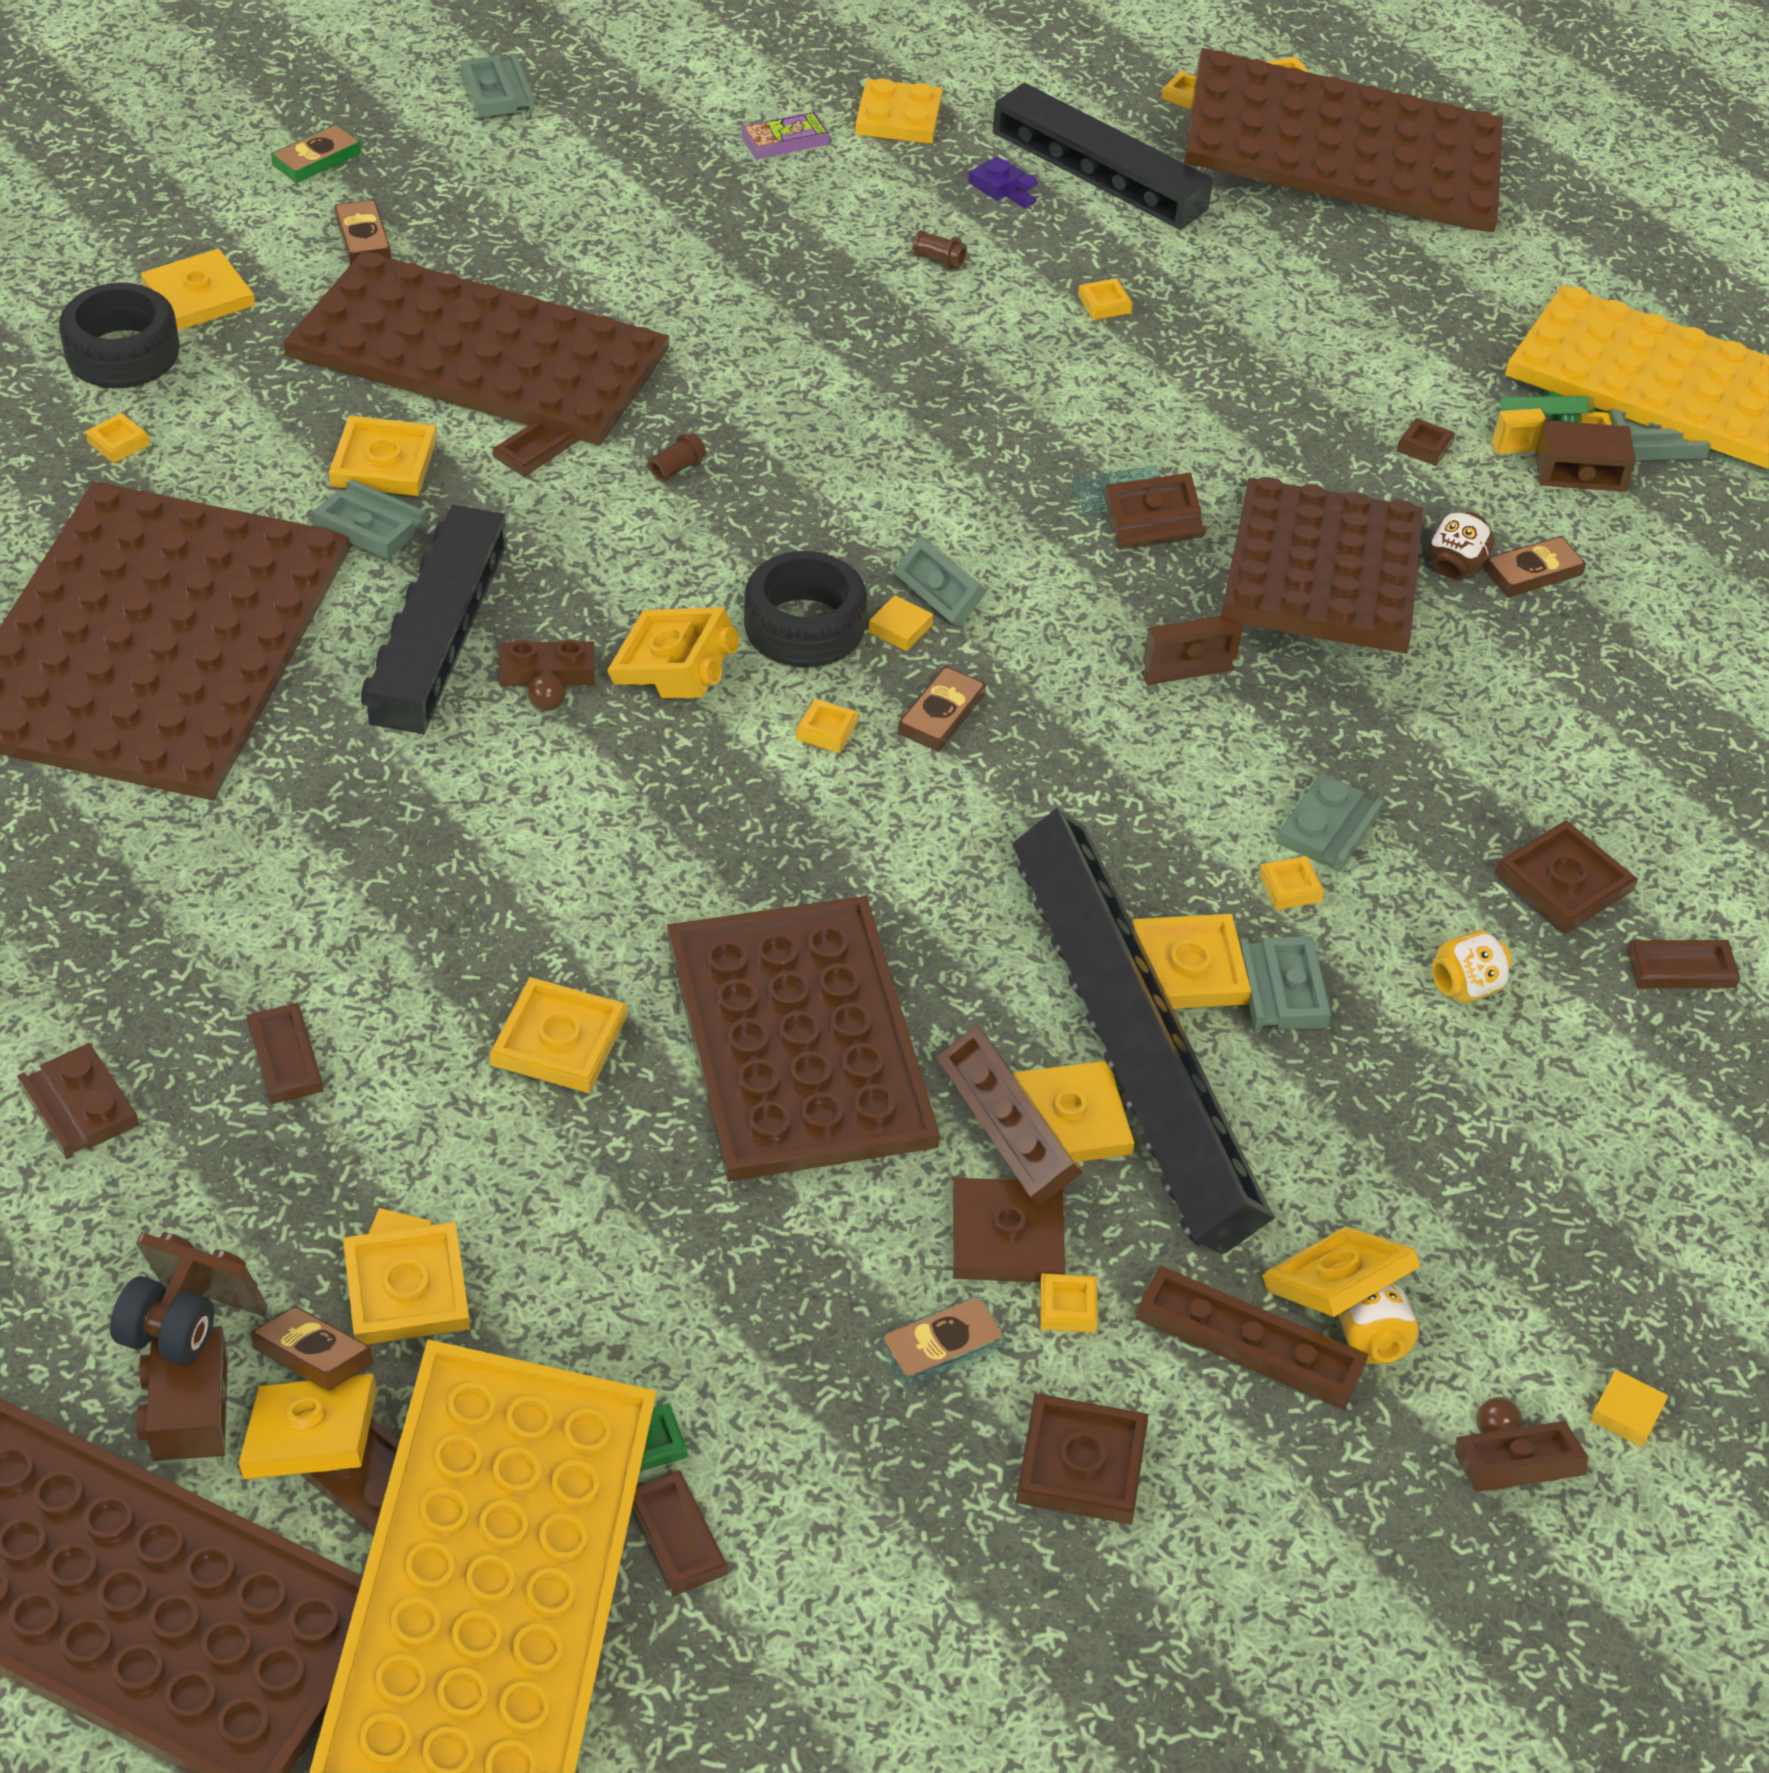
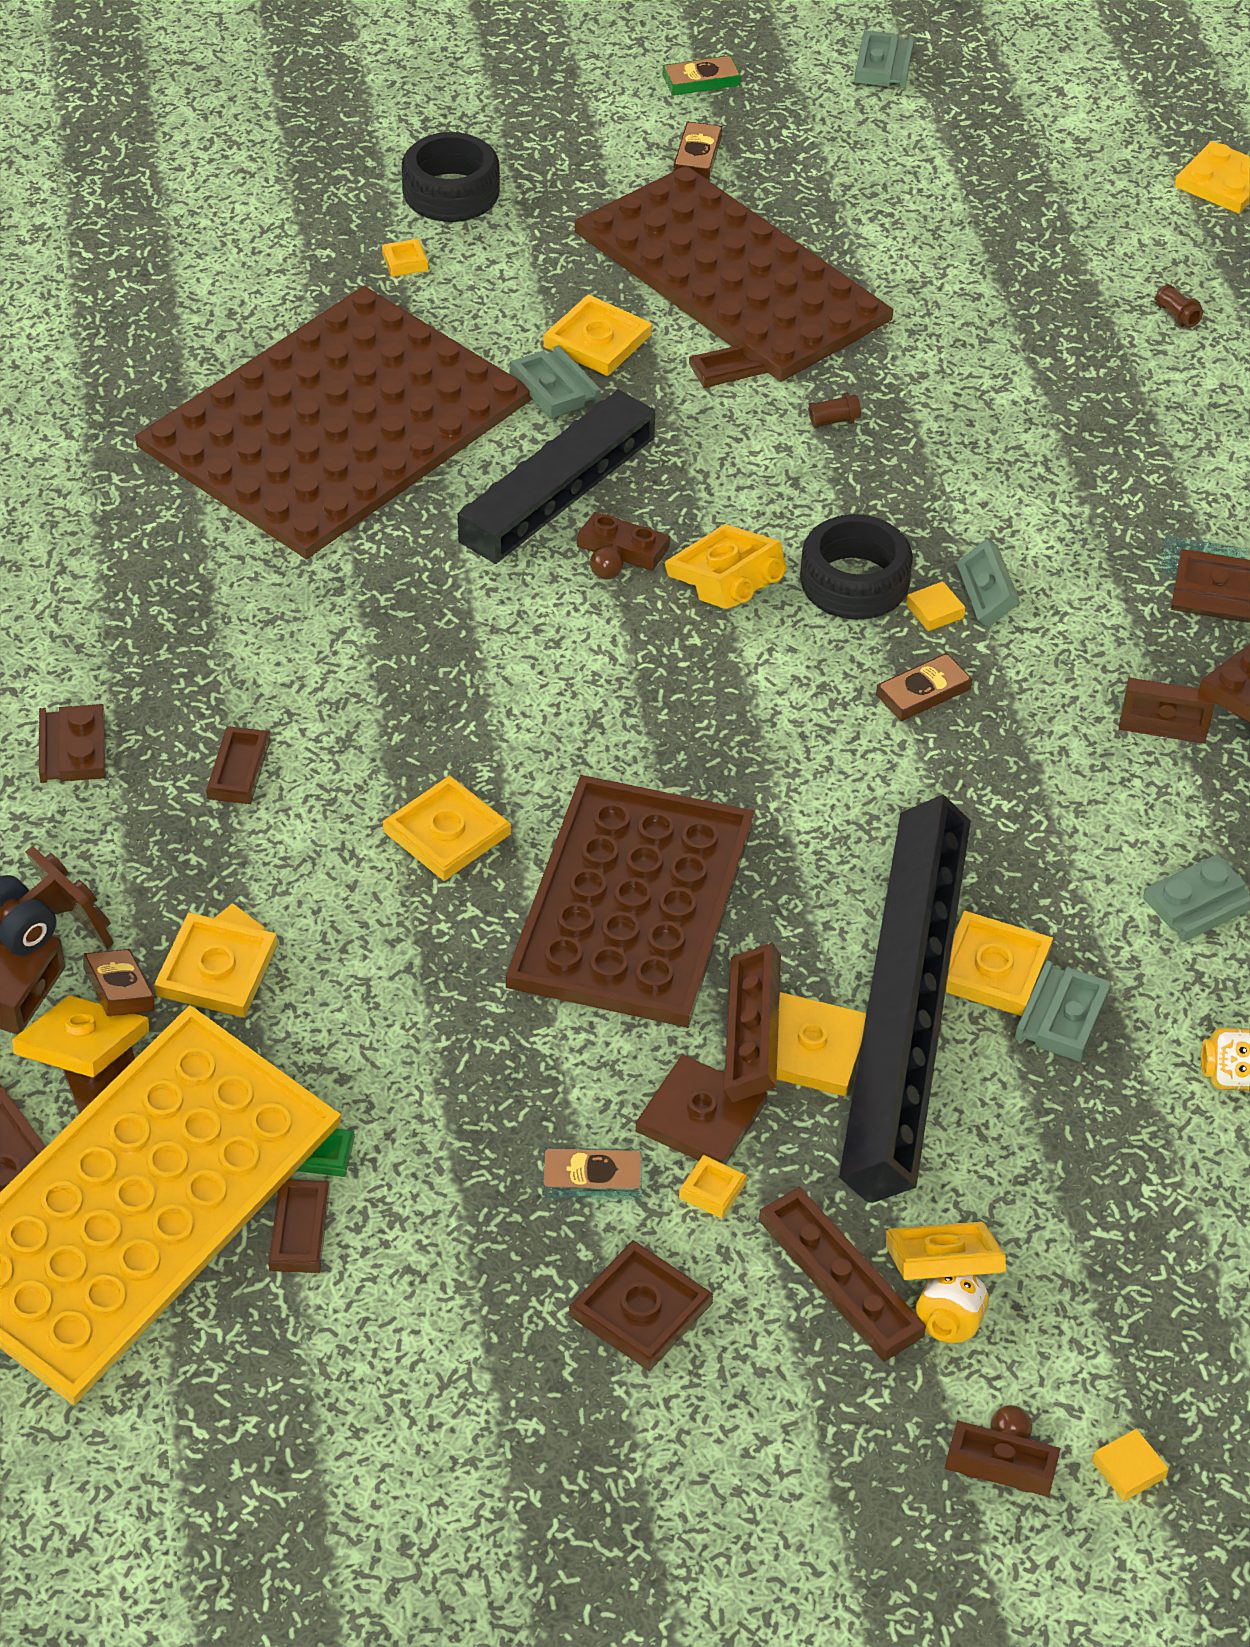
camera: 30 degrees right, 0 degrees up
(200, 288) = (538, 158): yellow plate -> none
(785, 135) = (1108, 169): tile -> none
(827, 725) = (818, 667): yellow tile -> none
(1291, 882) = (1131, 934): yellow tile -> none

